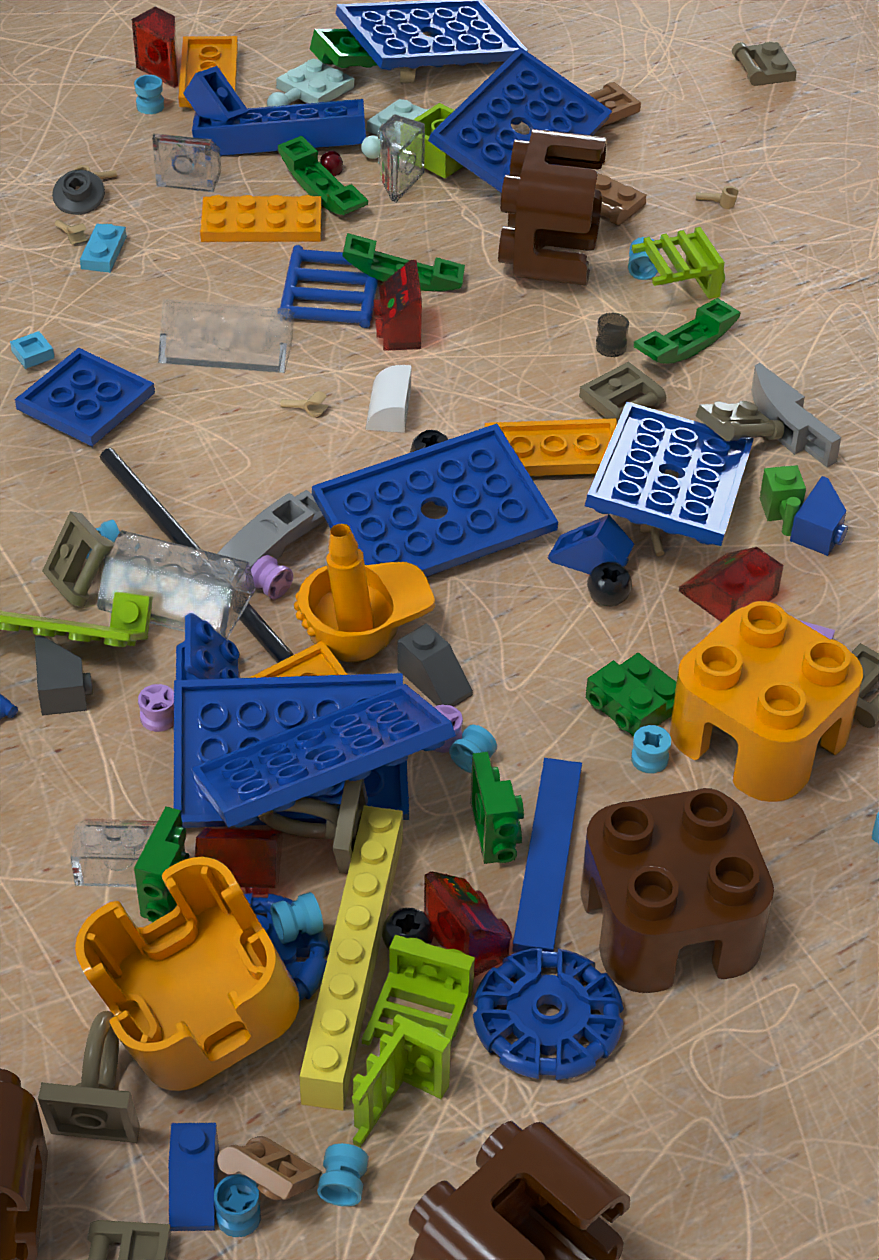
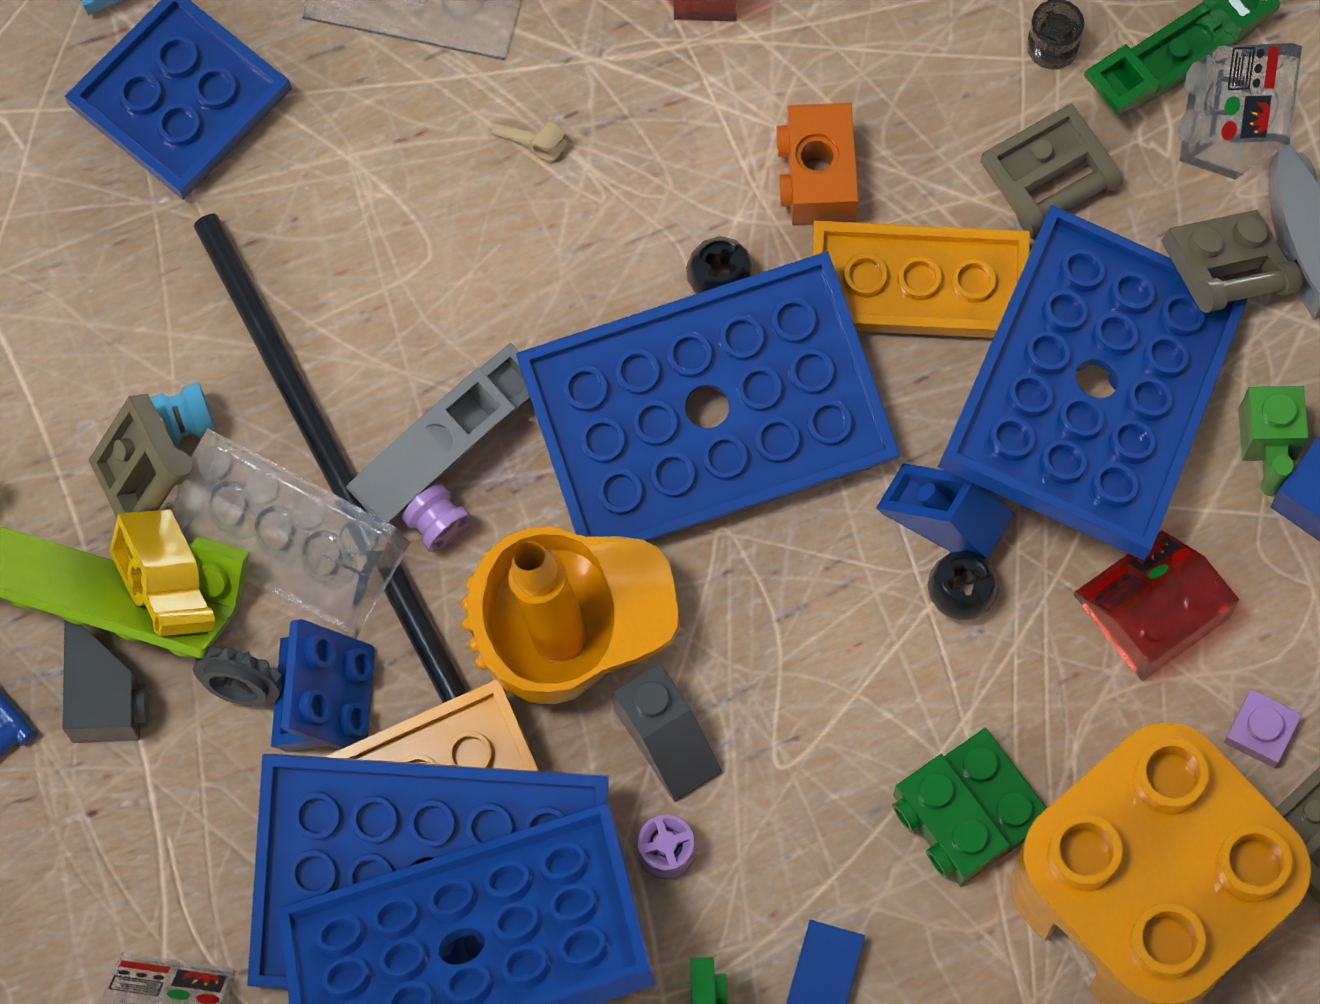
camera: 10 degrees right, 25 degrees up
(94, 605) = (160, 572): none -> yellow piece
(151, 671) = (238, 677): none -> dark grey gear
(156, 707) = (234, 751): lavender wheel -> none
(390, 400) = (668, 147): white brick -> none
(474, 740) = (704, 894): medium azure wheel -> none
(482, 396) = (823, 134): none -> orange brick
(651, 749) = (968, 935): medium azure wheel -> none
(728, 350) = (1239, 106): none -> clear slope

